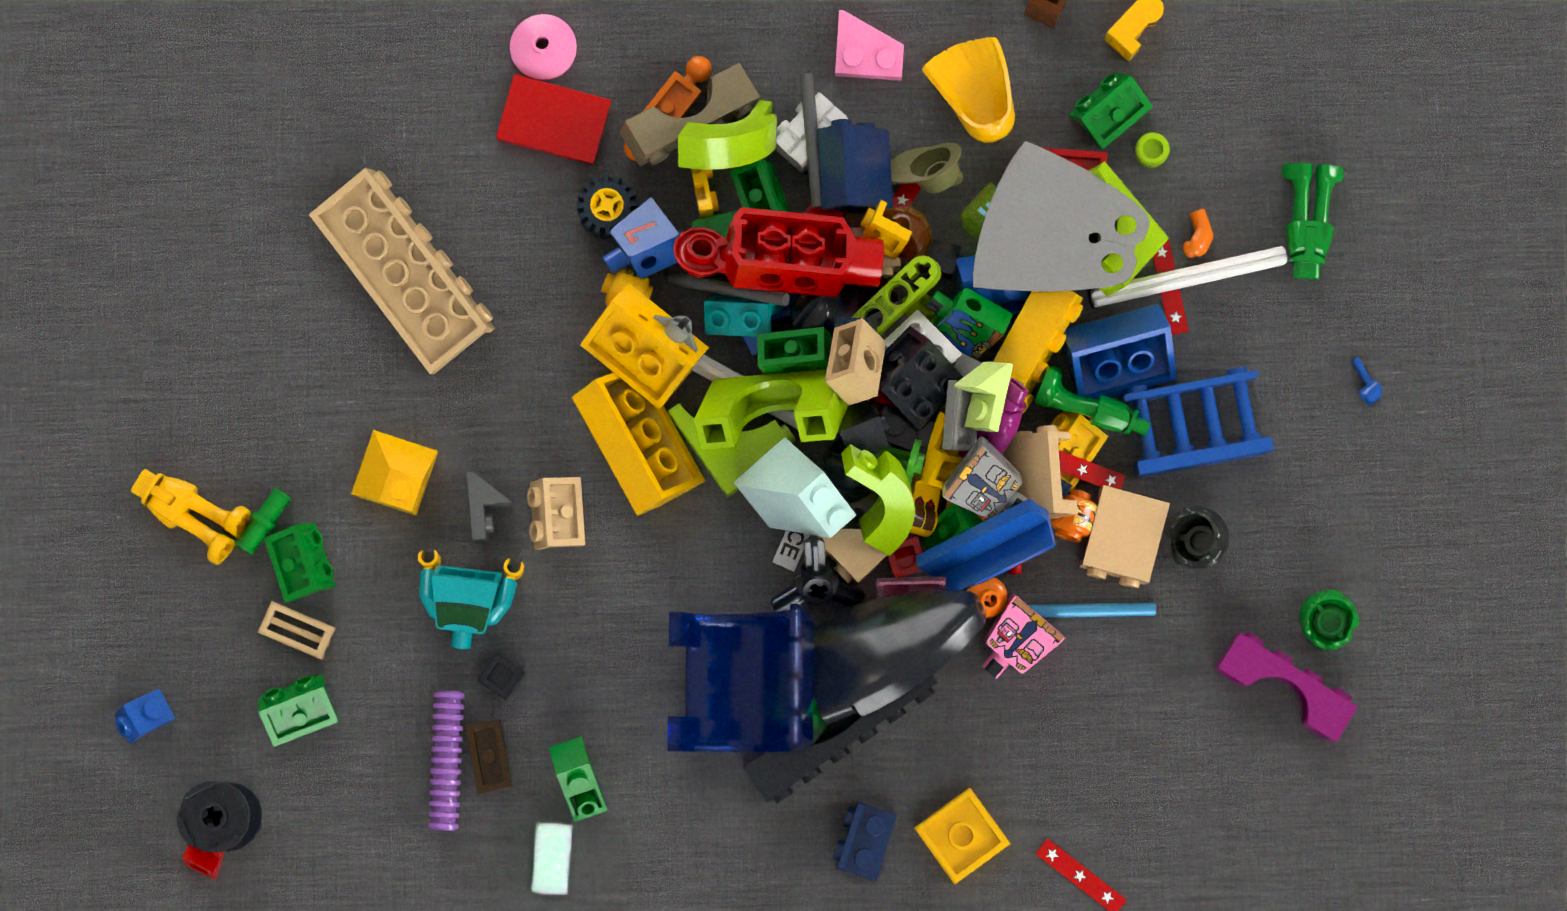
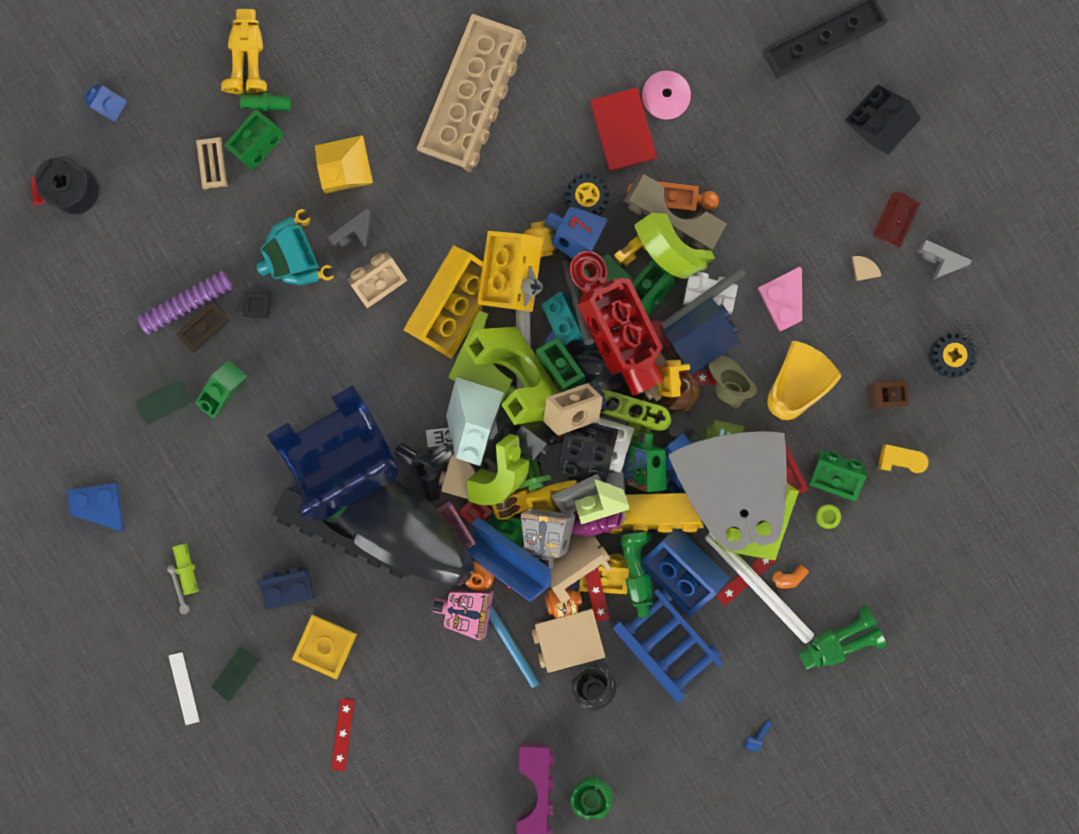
camera: 70 degrees right, 5 degrees up
(297, 709) = (162, 192): bracket -> none

